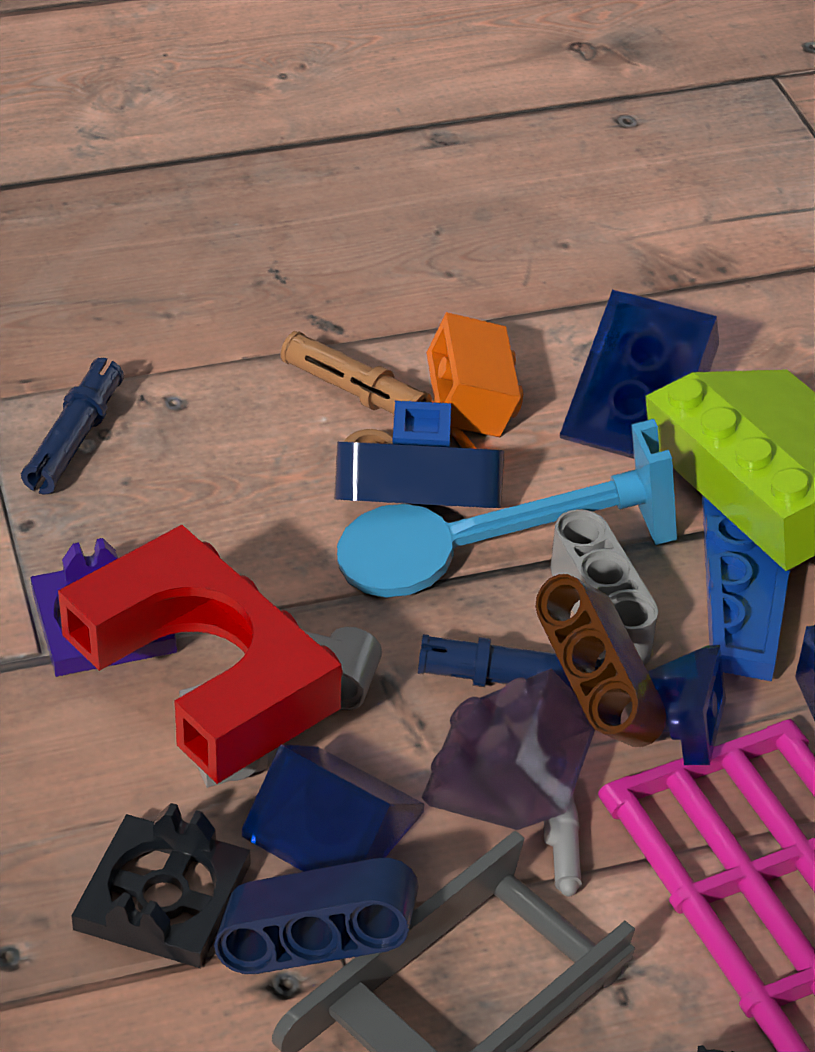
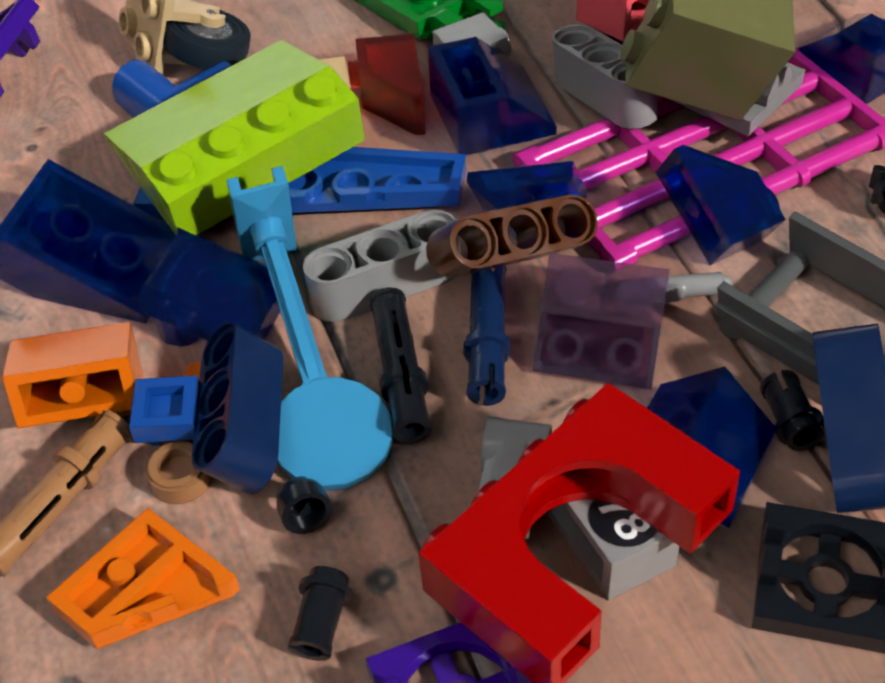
camera: 90 degrees left, 5 degrees up
(215, 529) = (322, 601): none -> black pin
(254, 427) = (140, 582): none -> orange wing
(311, 523) = (309, 503): none -> black hinge
(458, 597) = (402, 380): none -> black pin
(571, 453) = (204, 287): none -> clear blue slope
(665, 869) = (719, 202): none -> clear blue slope

